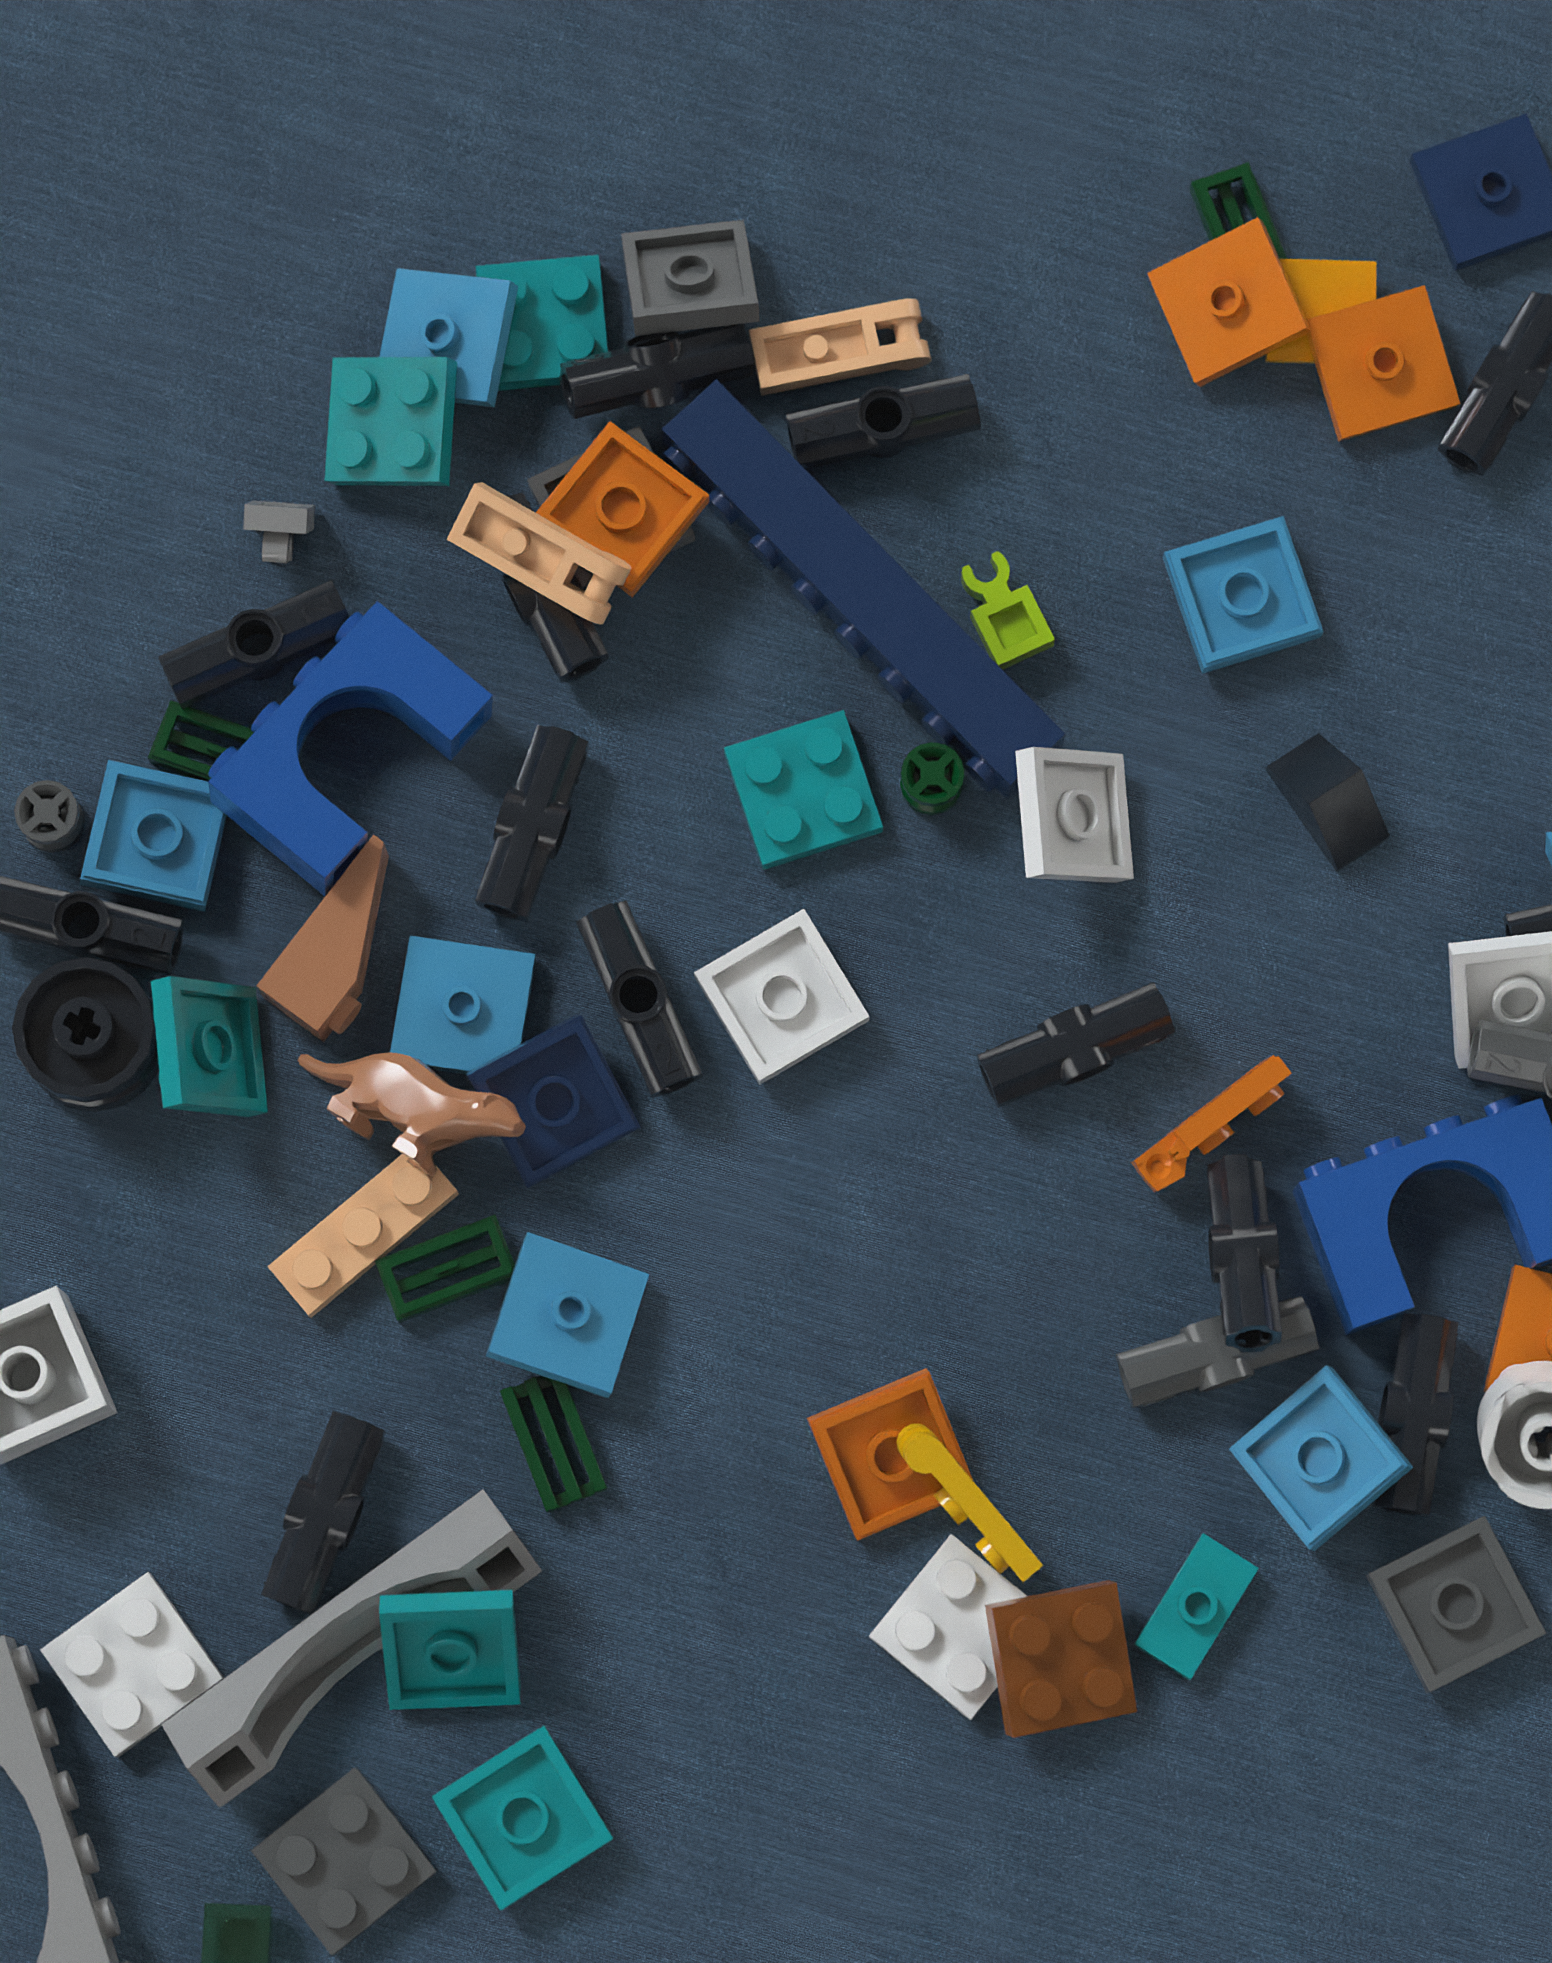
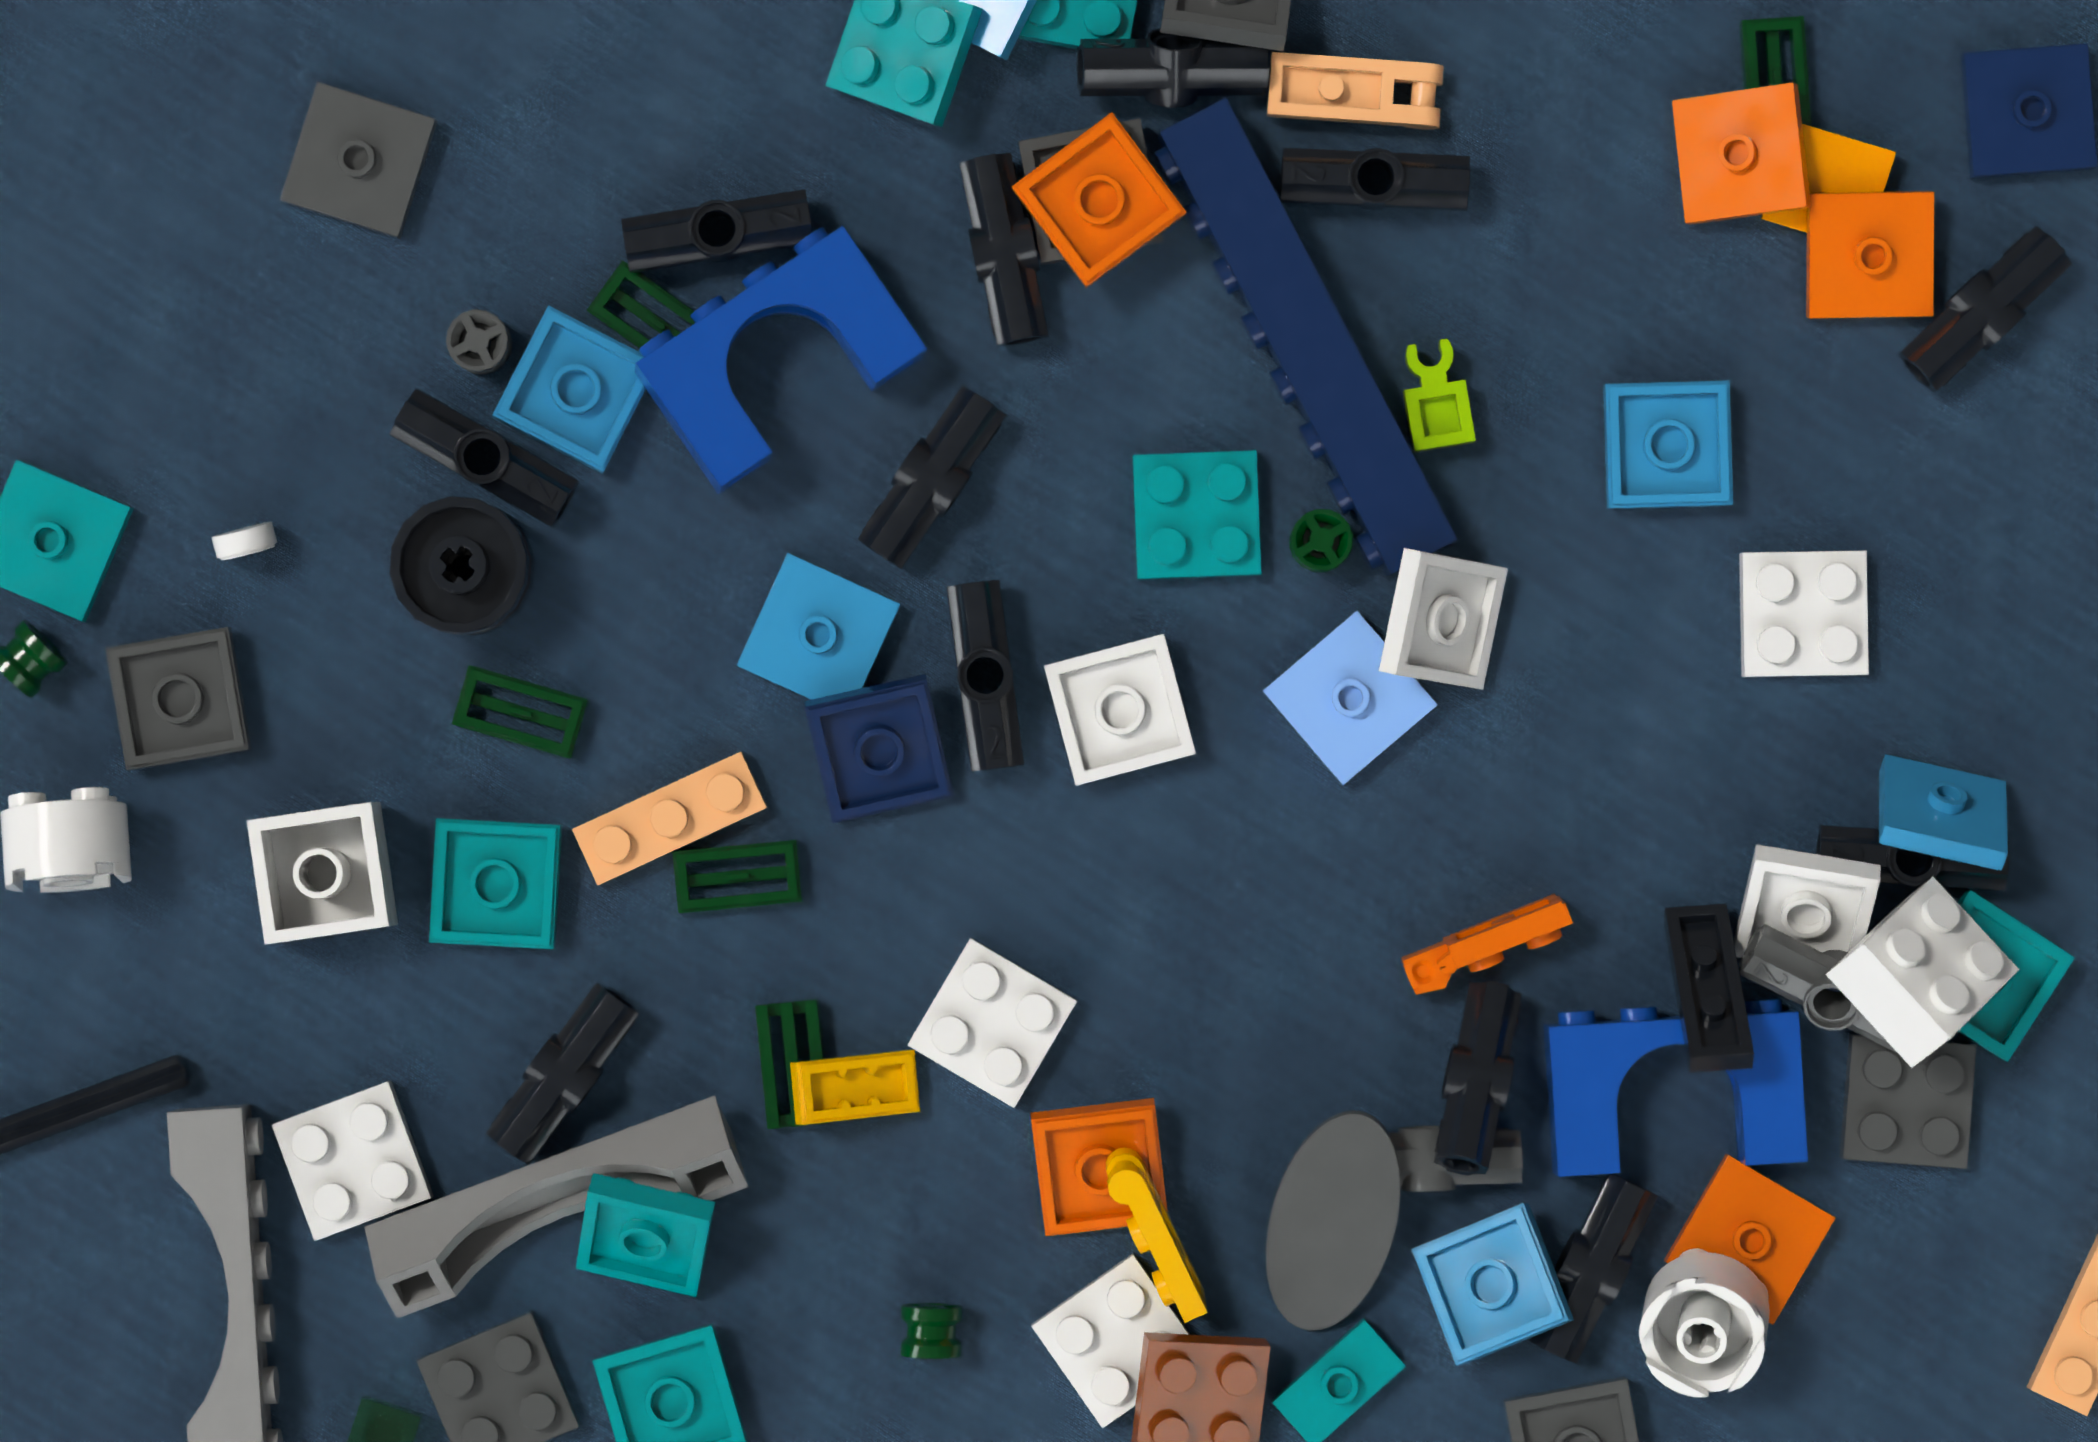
camera: 20 degrees right, 10 degrees up
(203, 1192) = (571, 726): none -> dark green tile
(204, 1342) = (495, 883): none -> teal plate
(209, 1047) = (571, 612): teal plate -> none
(278, 523) = (771, 116): light grey tile -> none
(328, 957) = (704, 555): nougat slope -> none
(415, 1102) = (749, 716): nougat animal -> none
(537, 552) = (1007, 226): light nougat plate -> none
(567, 1315) = (836, 954): dark azure plate -> none
(622, 1442) = (855, 1087): none -> yellow plate
(742, 1342) = (992, 1022): none -> white plate
(768, 1667) = (931, 1330): none -> dark green wheel
(1004, 925) = (1343, 700): none -> light blue plate
(1075, 1044) = (1381, 834): black piece -> none
(1141, 1439) = (1333, 1220): none -> dark grey shield
(1330, 800) = (1690, 665): black slope -> none
(1424, 720) = (1804, 613): none -> white plate
(1445, 1098) = (1708, 988): none -> black plate

